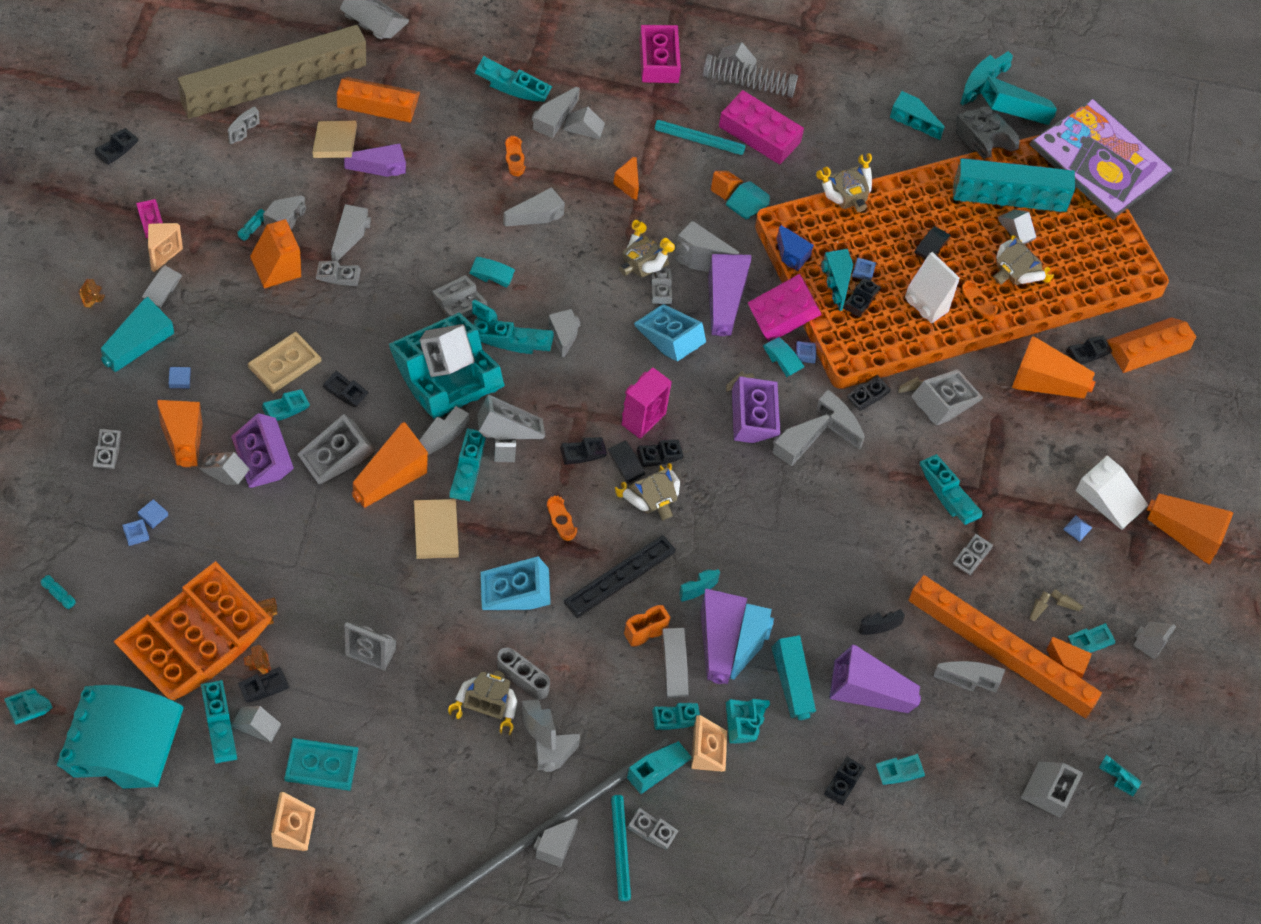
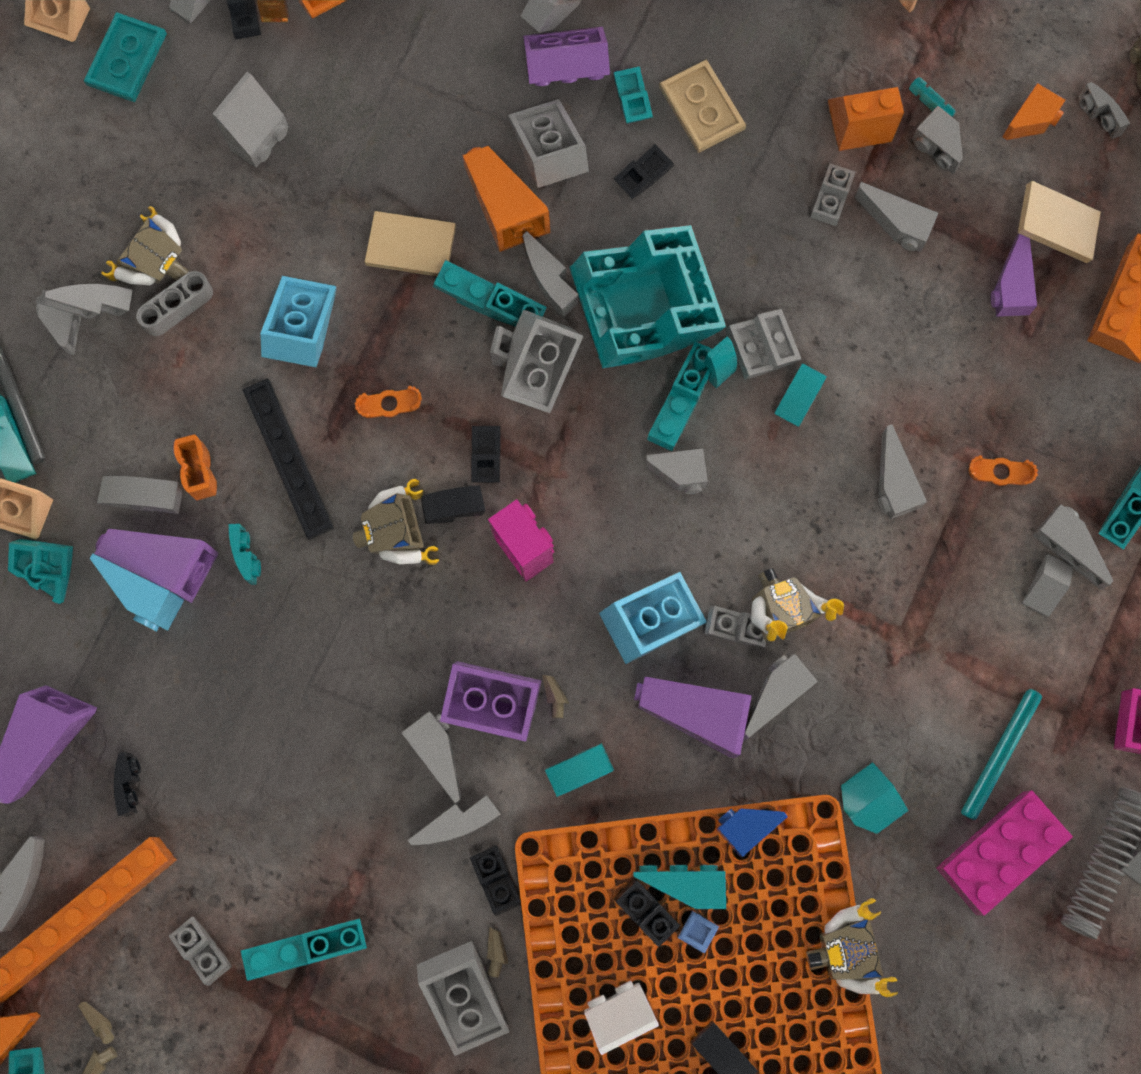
camera: 115 degrees right, 20 degrees up
(253, 163) = (1036, 114): none -> orange slope
(269, 606) = (336, 24): clear orange tile -> none
(446, 349) = (655, 286): light grey slope -> none
(627, 178) = (936, 624): orange slope -> none
(663, 453) = (460, 556): black slope -> none
(676, 717) = (71, 480): teal slope -> none
(725, 183) = (908, 771): orange slope -> none
(784, 308) = (650, 788): dark pink brick -> none
(794, 676) = (76, 639): teal slope -> none
(806, 351) = (585, 808): medium blue tile -> none

